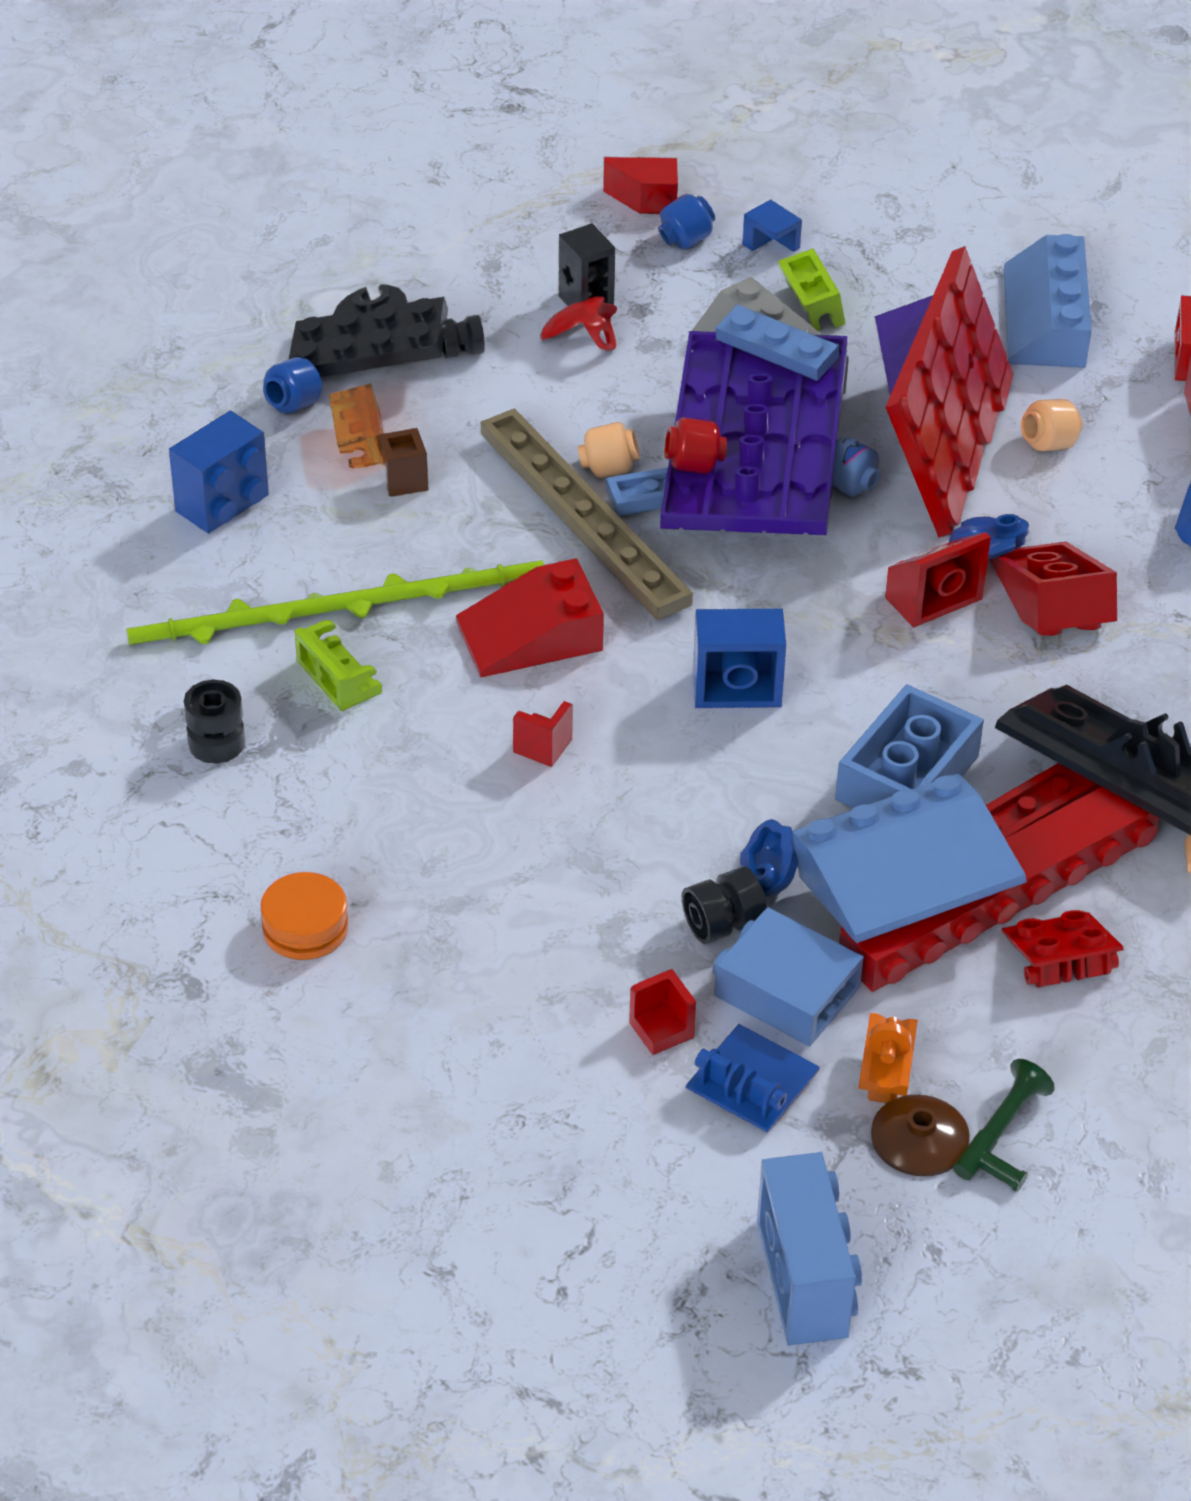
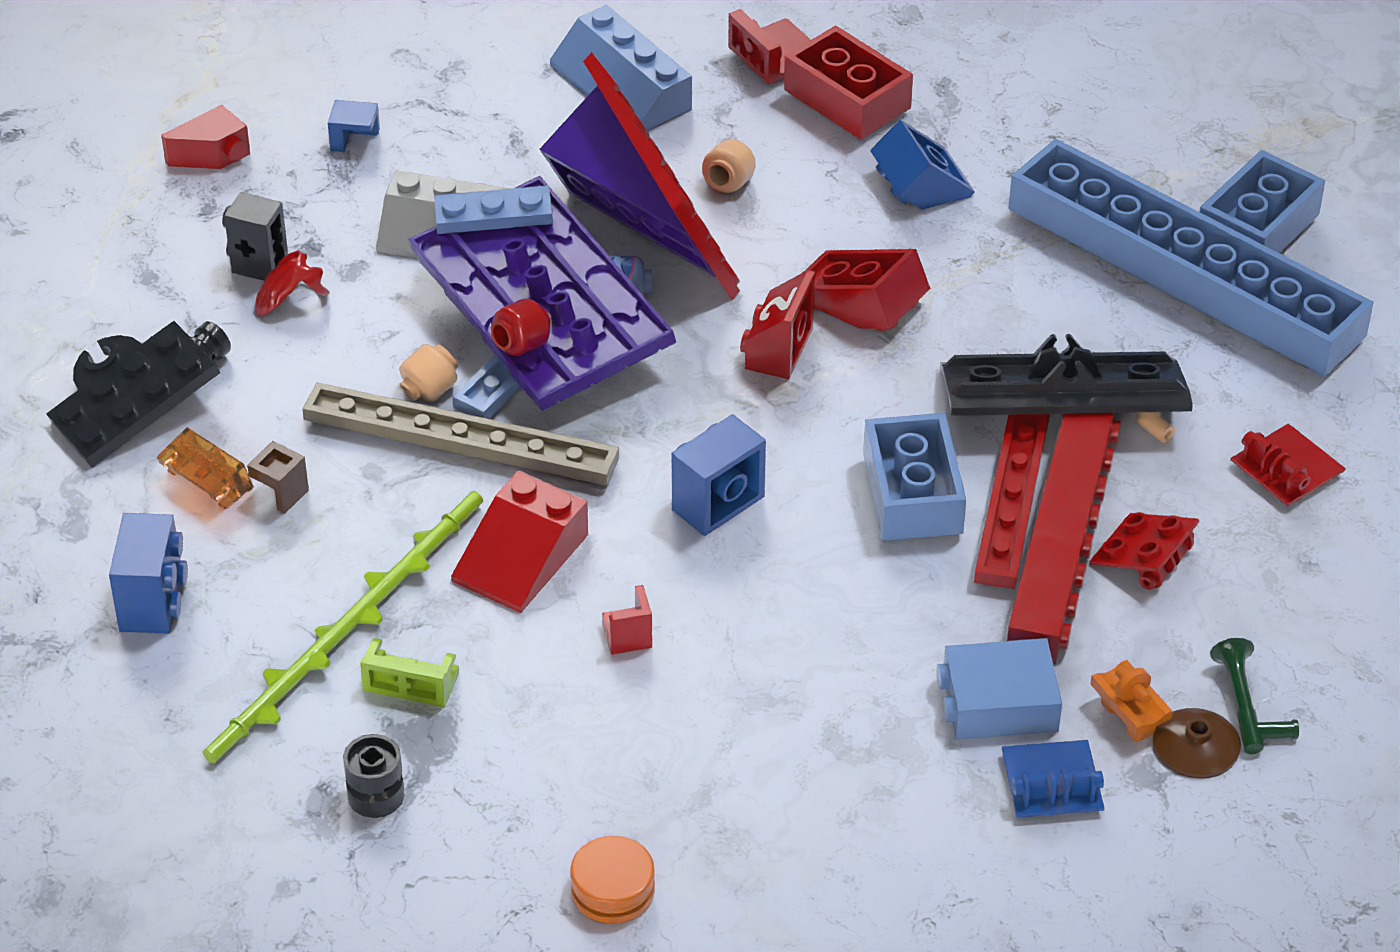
camera: 40 degrees left, 0 degrees up
(292, 385) = (110, 468): blue head -> none
(662, 1011) = (950, 772): red panel -> none
(686, 221) = (279, 153): blue head -> none
(720, 906) = (905, 666): black wheel -> none
(771, 856) = (893, 611): blue arm -> none
(807, 1248) = (1237, 867): medium blue brick -> none
(813, 287) = (439, 152): lime hinge -> none
(906, 857) = (1005, 548): medium blue slope -> none
(1005, 531) = (770, 273): blue plate -> none

